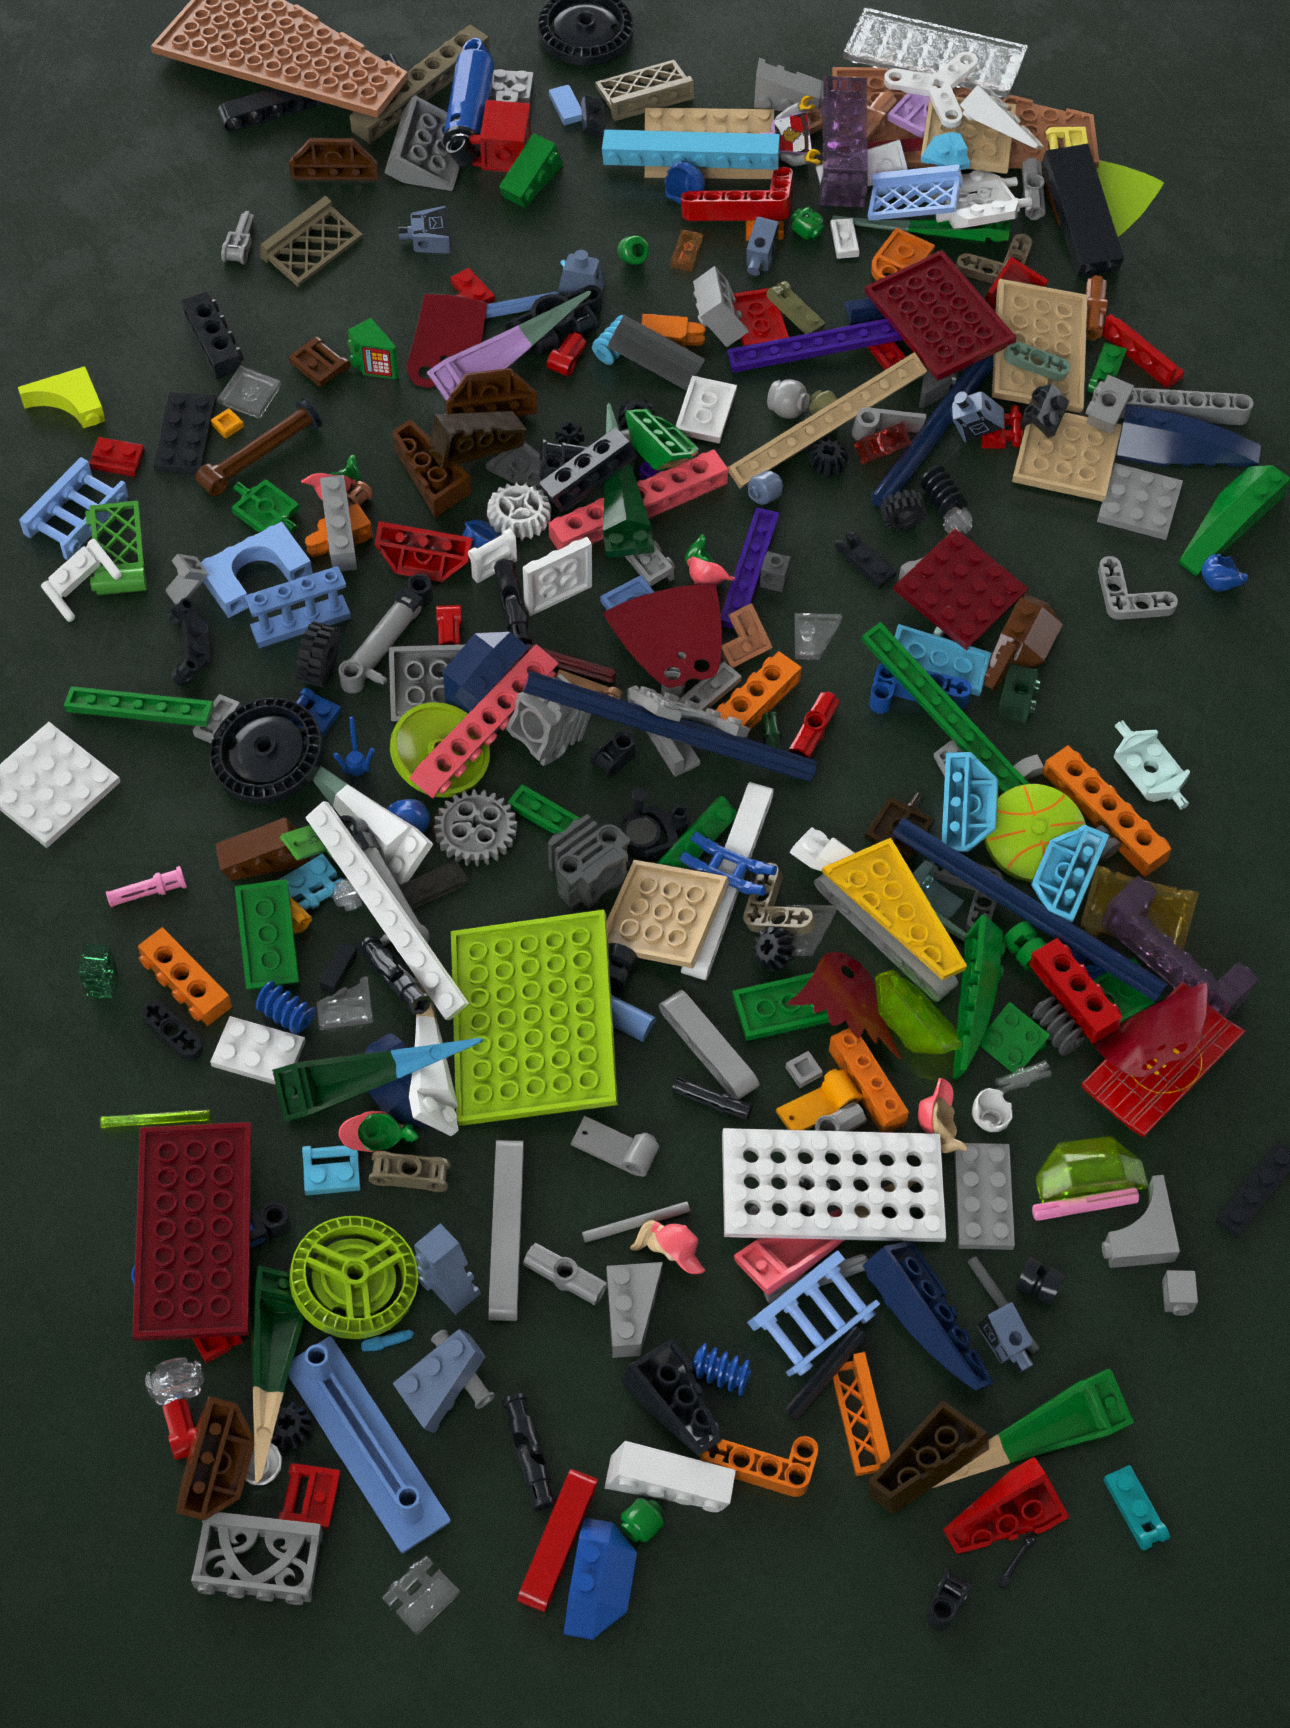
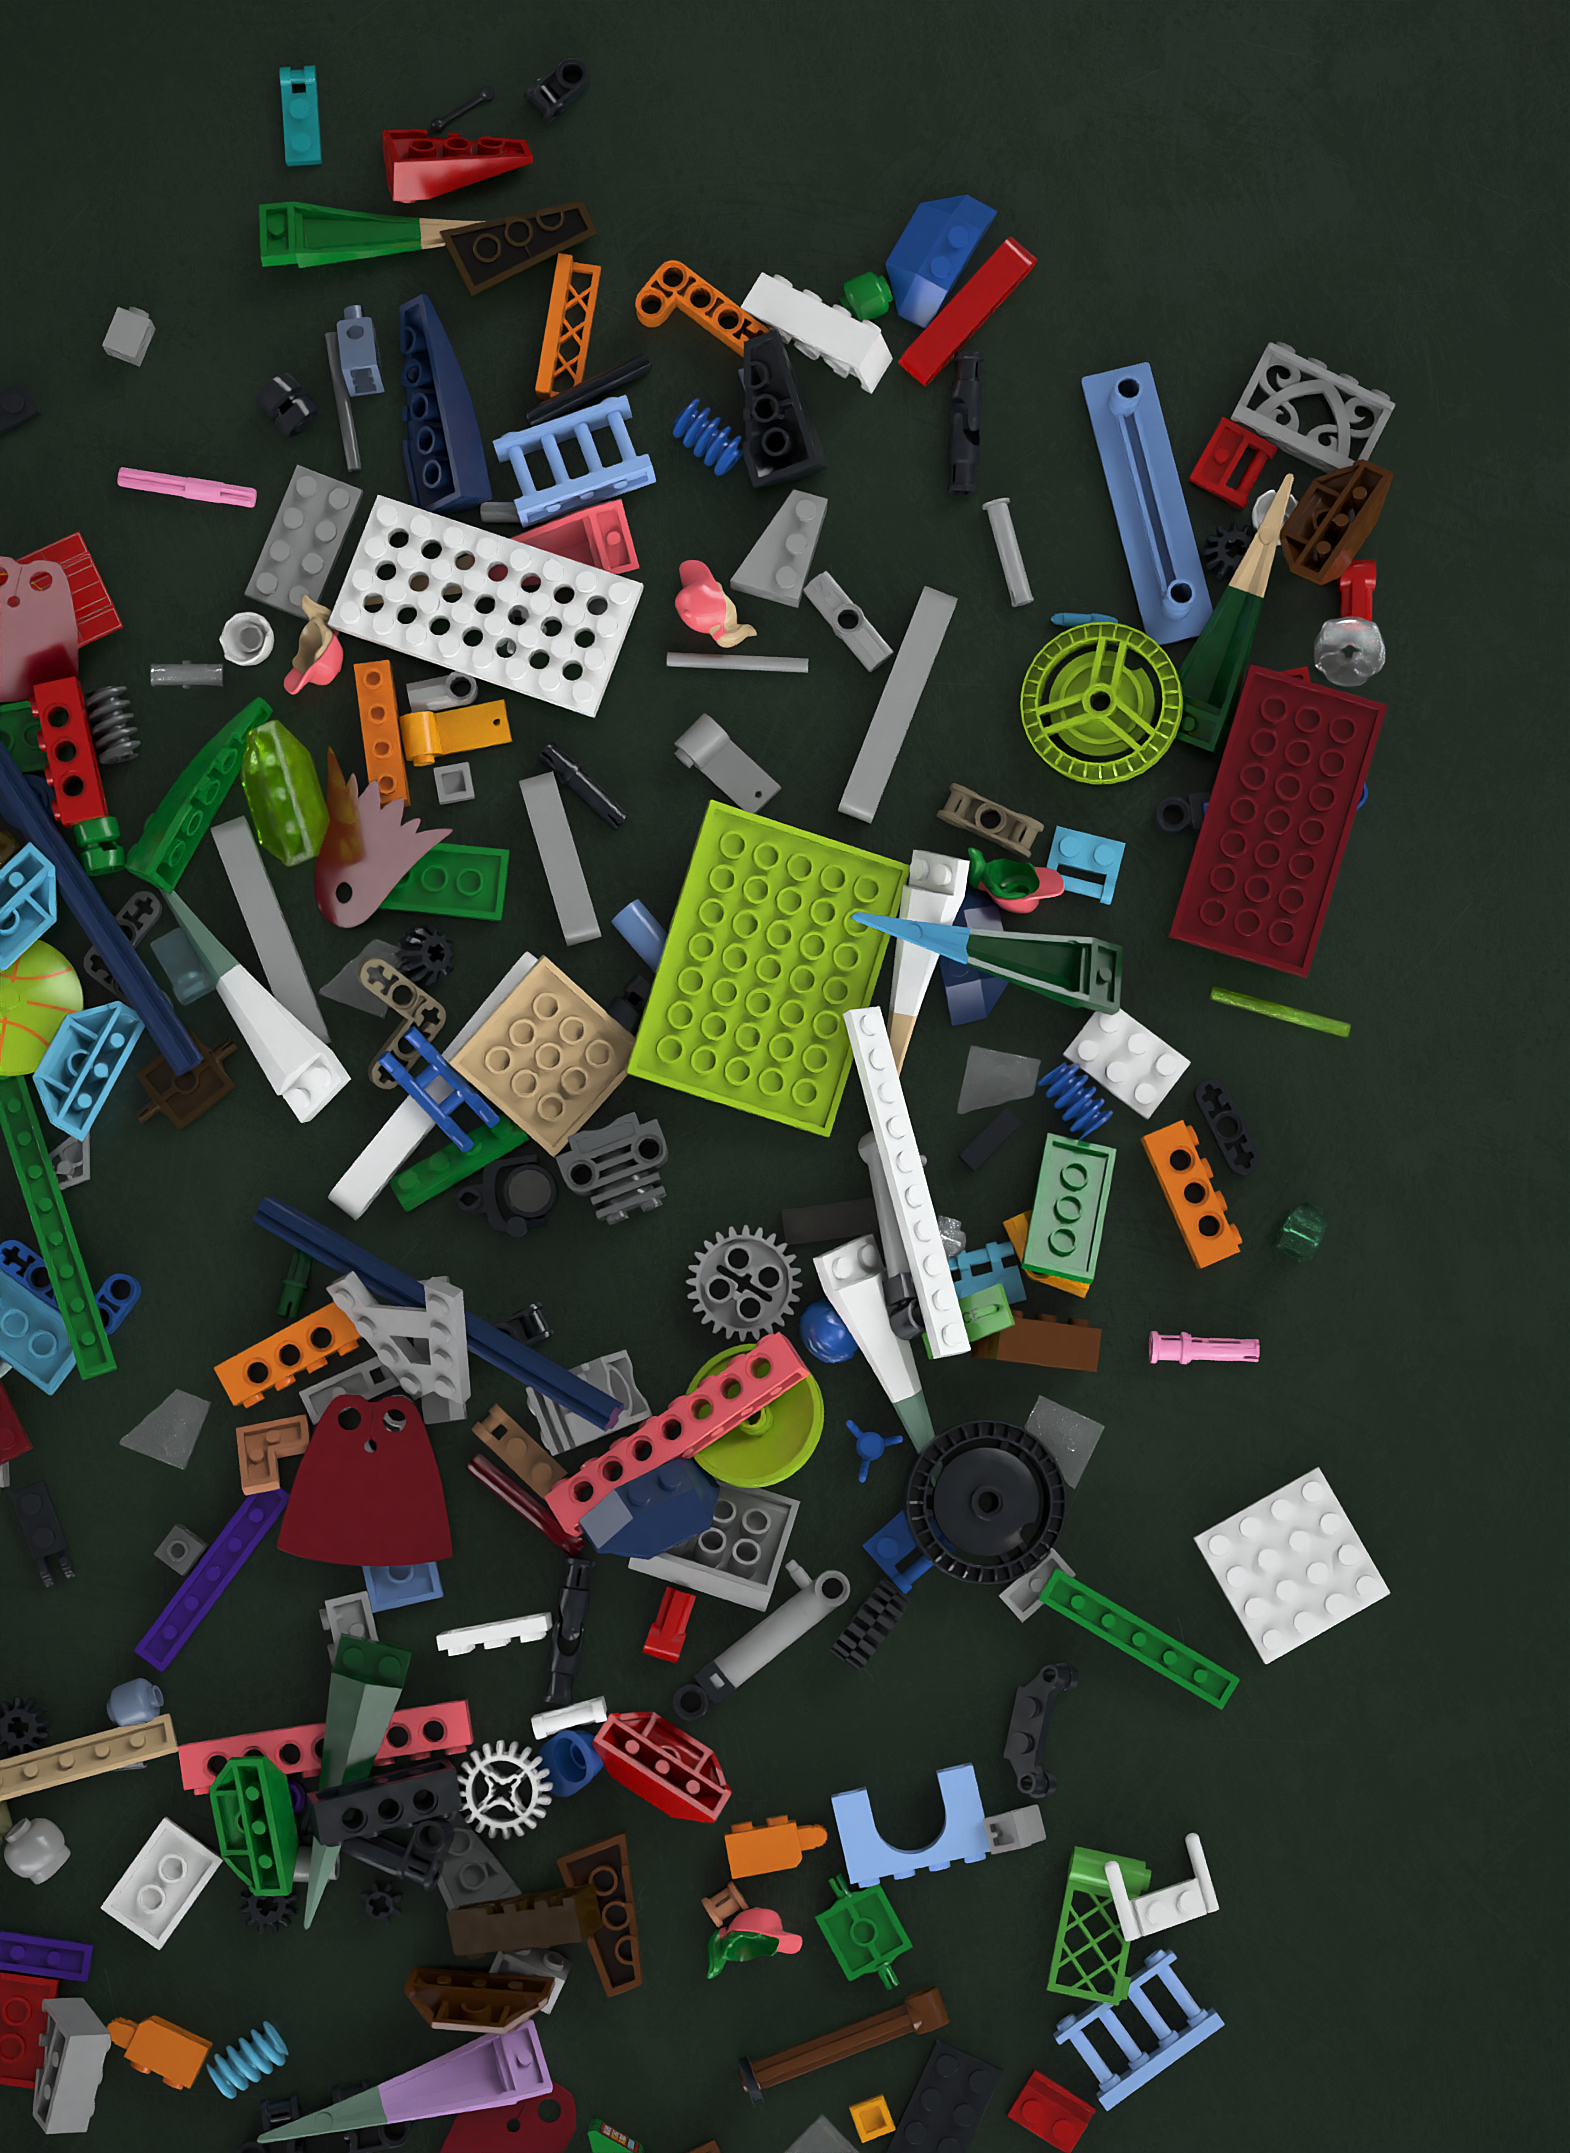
camera: 160 degrees left, 25 degrees up
(226, 808) = (1066, 1435): none -> clear wing
(295, 622) = (874, 1717): medium blue fence -> none
(338, 523) = (774, 1837): light grey brick -> none
(395, 975) = (928, 1109): black piece -> none
(427, 1601) = (1135, 300): clear plate -> none
(439, 1377) = (1044, 537): sand blue wedge -> none
(442, 1269) = (993, 665): sand blue wedge -> none
(541, 810) = (643, 1272): green plate -> none
(565, 358) = (335, 2055): red piece -> none
(655, 352) = (201, 2003): dark grey panel -> none
(702, 566) = (278, 1594): coral hair -> none
(819, 716) = (215, 1294): red piece -> none
(891, 895) = (248, 965): yellow wing -> none
(1013, 1038) = (173, 727): green hinge -> none
(1088, 1169) = (162, 525): clear neon green wedge -> none
(1150, 1238) = (132, 414): light grey arch -> none

